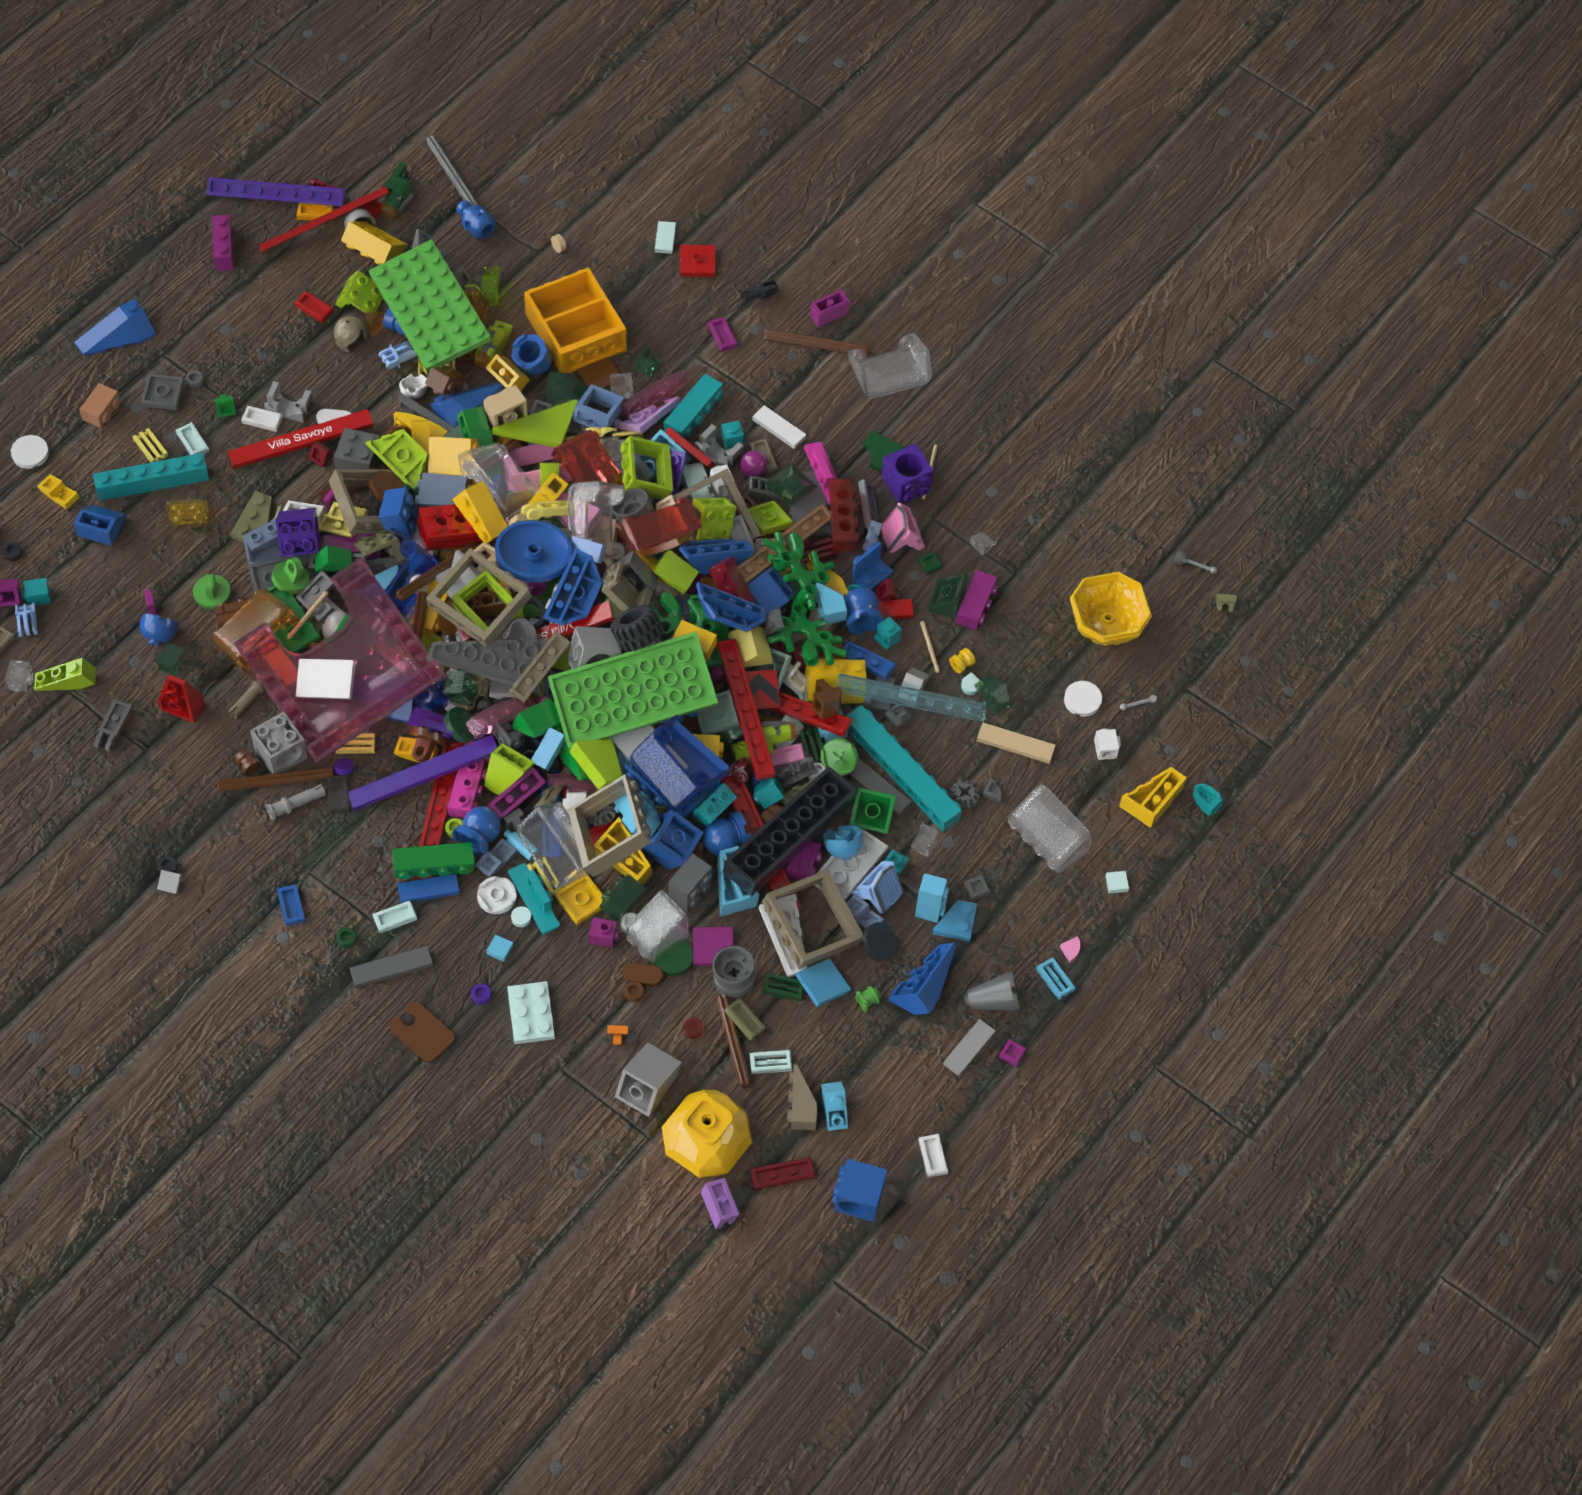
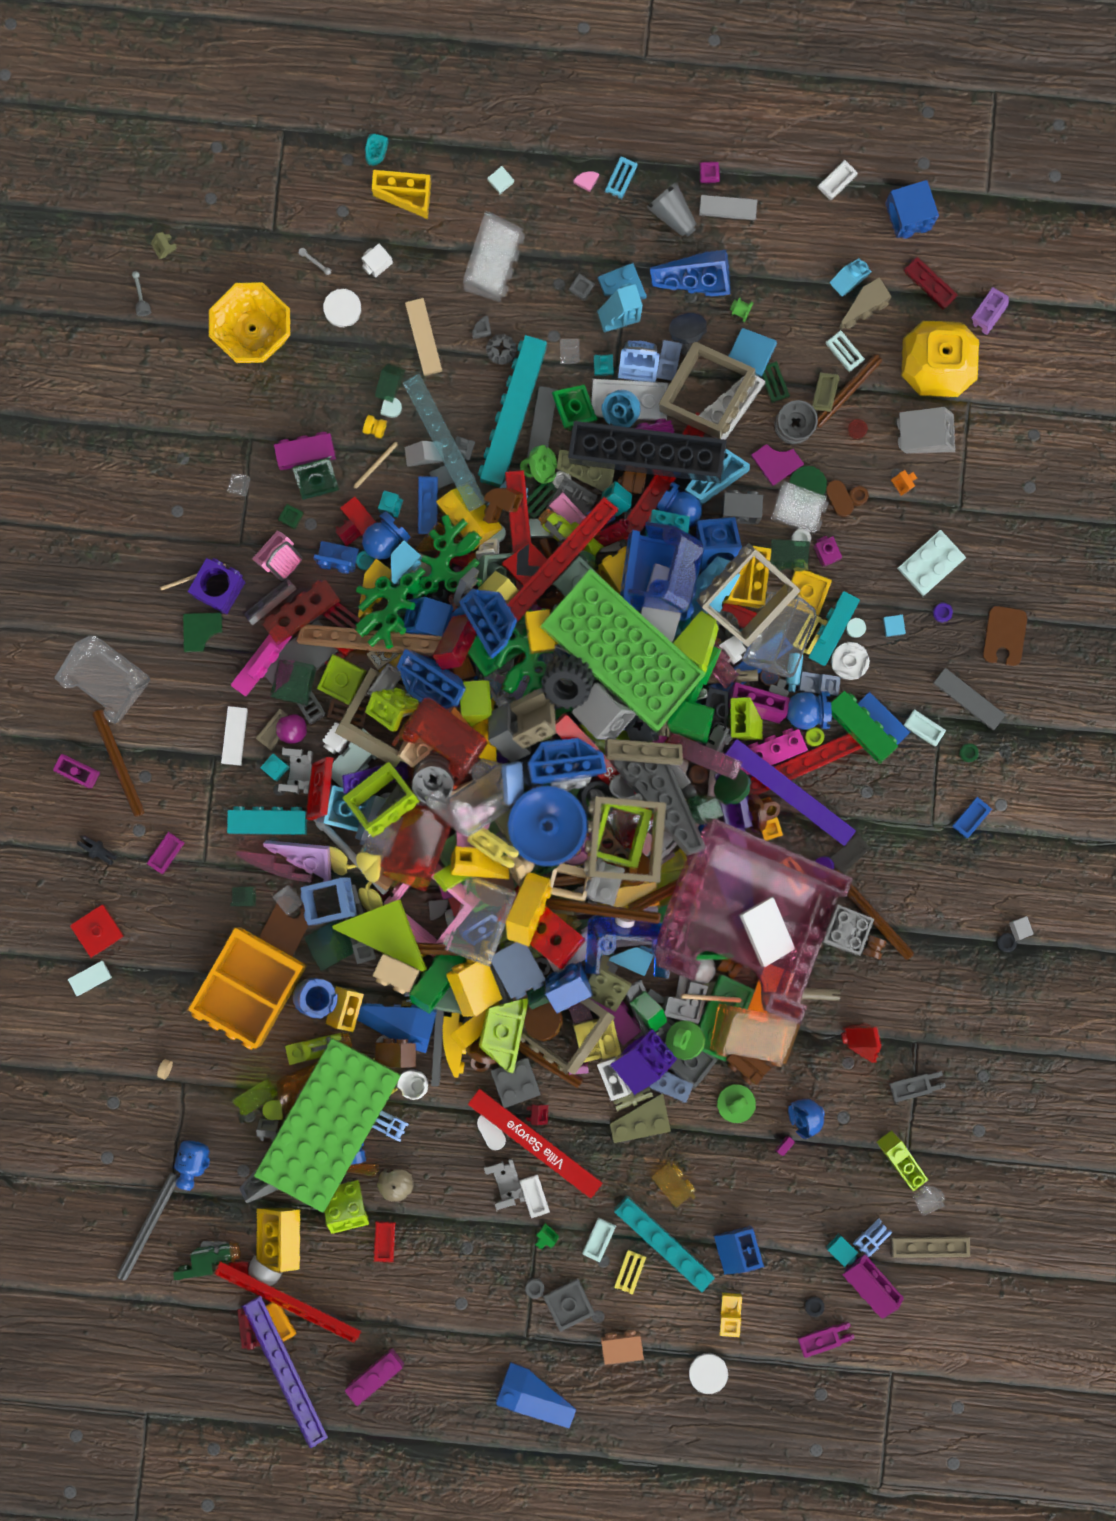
camera: 125 degrees left, 25 degrees up
(169, 658) = (826, 1085): clear green panel -> none
(287, 804) = (890, 886): light grey pin -> none
(548, 749) = (712, 693): tile -> none
(873, 533) = (308, 571): sand blue hinge -> none

